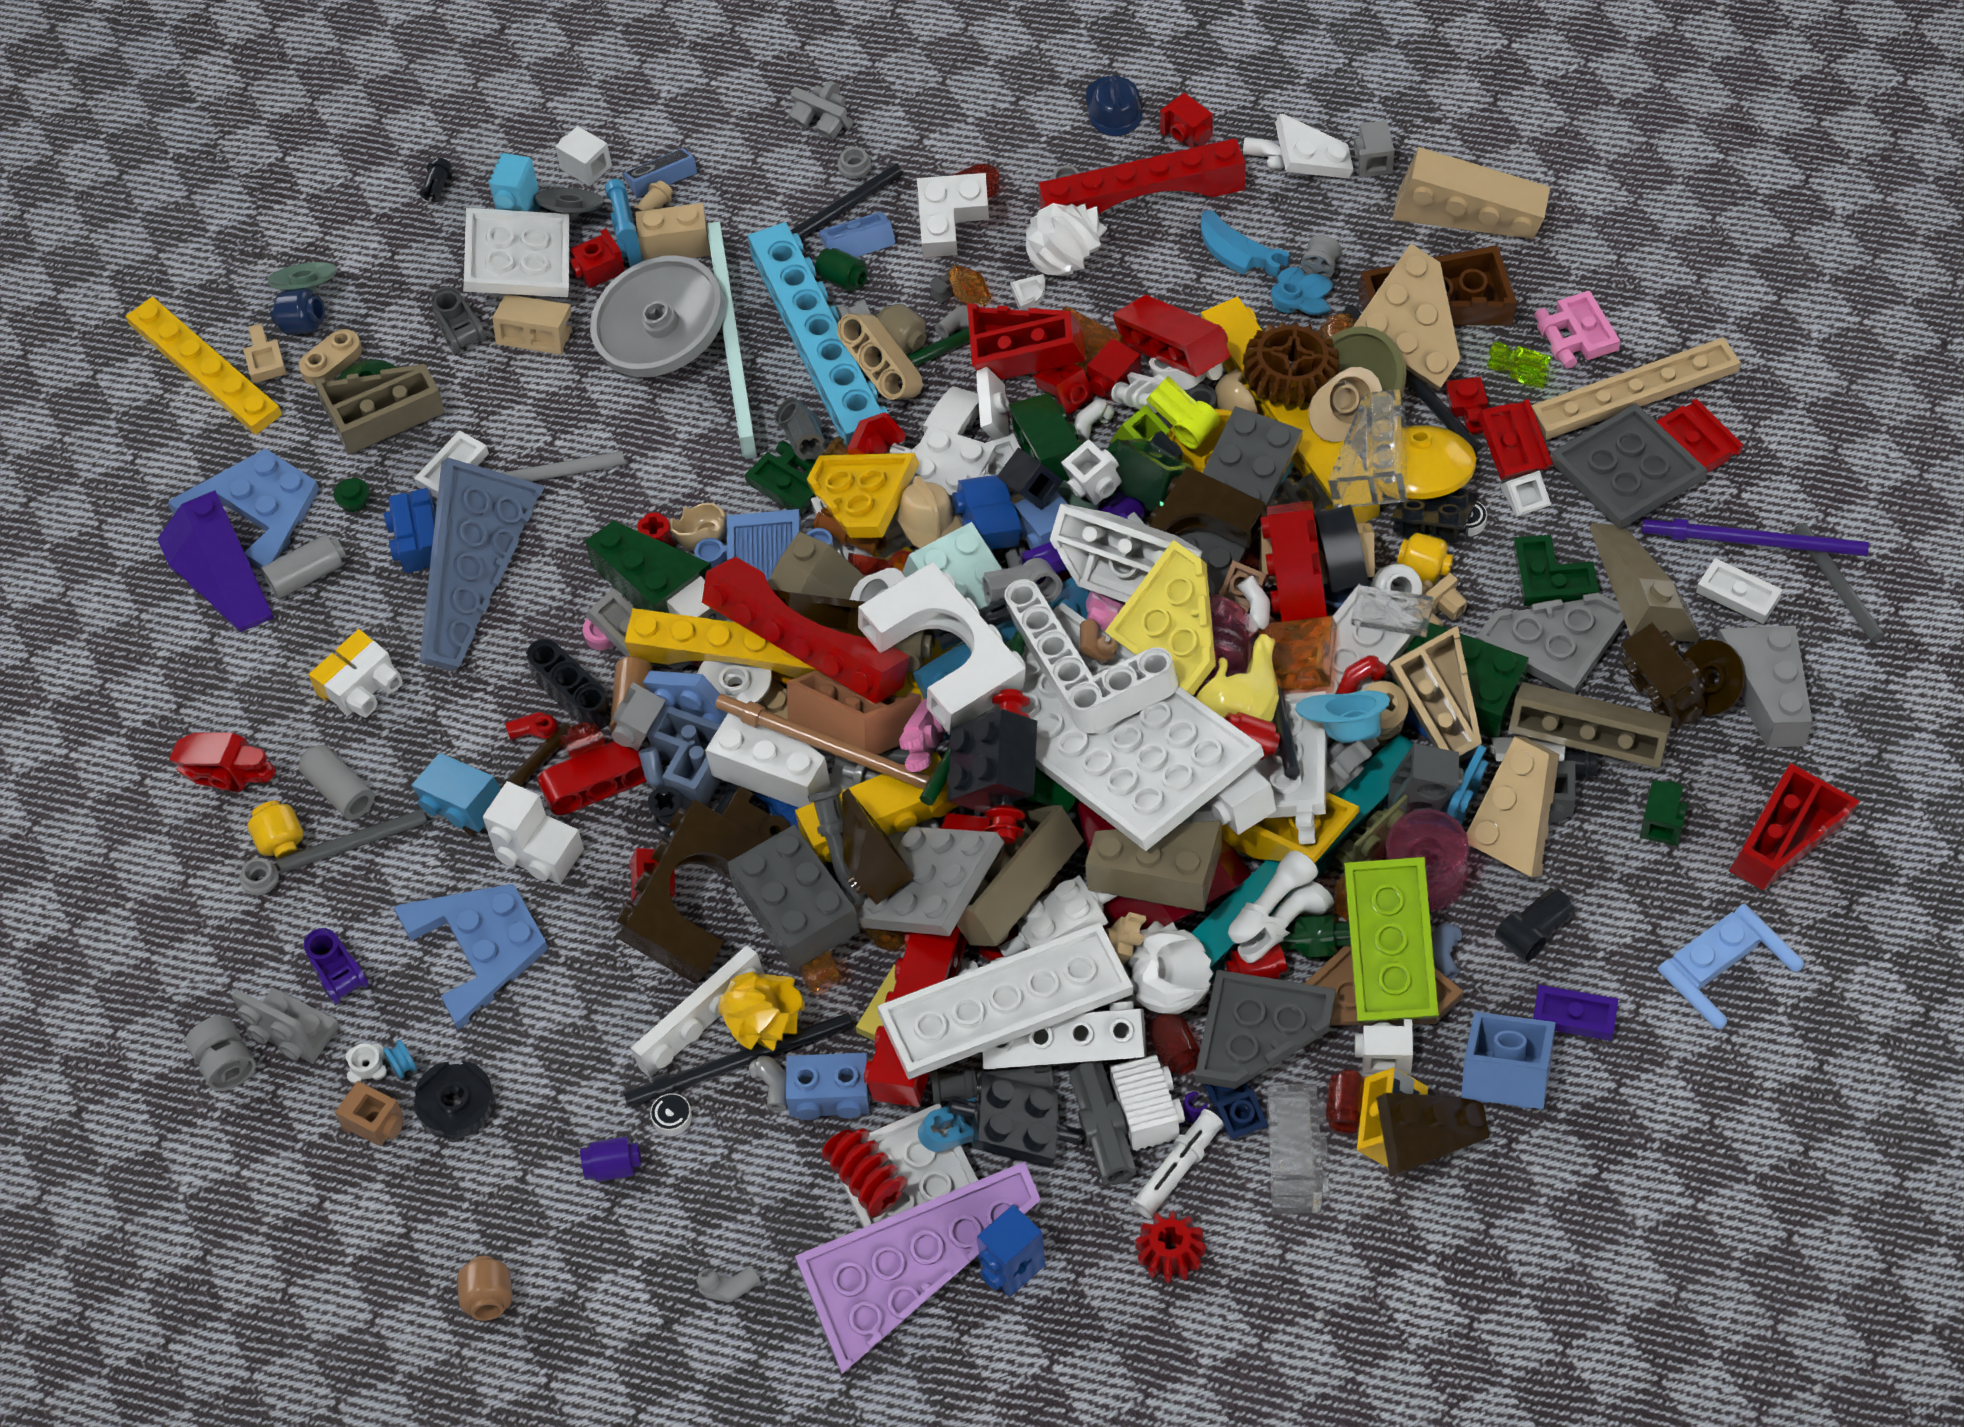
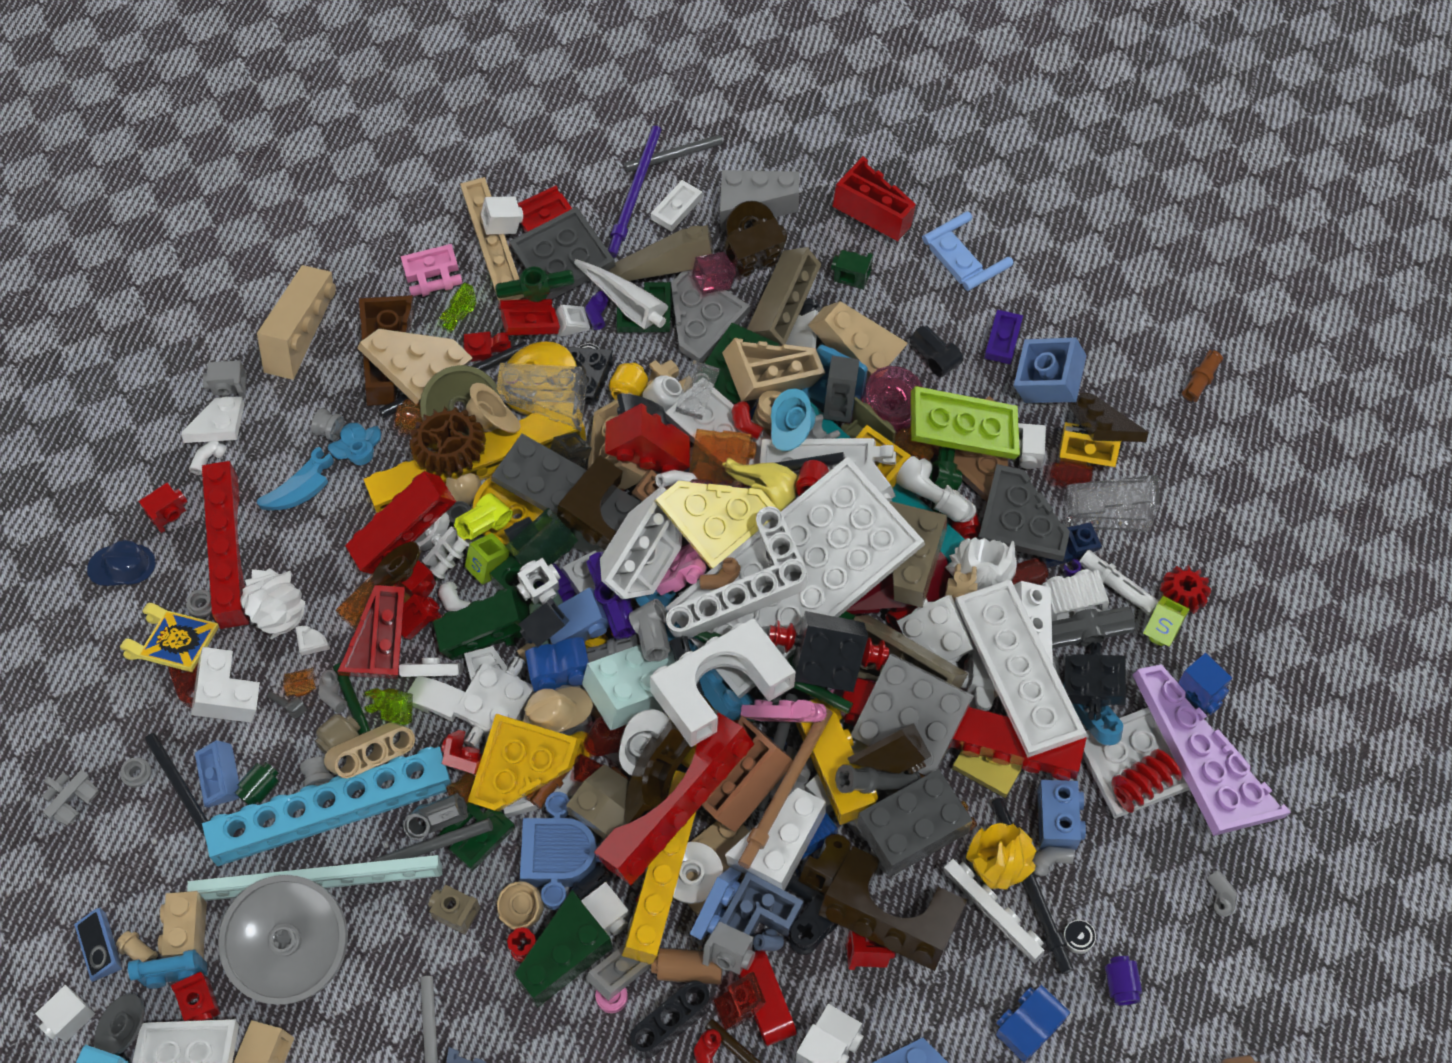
camera: 90 degrees left, 5 degrees up
(559, 1056) = (1031, 1023): none -> blue brick
(698, 468) = (461, 915): none -> dark tan brick
(771, 436) = (439, 841): none -> dark grey bar
(942, 375) = (393, 704): none -> clear neon green plate
(1012, 164) = (174, 641): none -> flag
(1109, 339) = (397, 564): none -> dark brown dish
(1112, 1213) = (1165, 622): none -> lime brick
(1544, 515) = (595, 308): none -> dark purple arm
(1544, 1285) = (1202, 376): none -> dark orange pin
(1557, 431) = (534, 284): none -> dark green axle
(1558, 545) = (631, 299): none -> white piece
(1608, 628) = (713, 272): none -> clear pink brick
(1666, 381) = (501, 215): none -> white brick

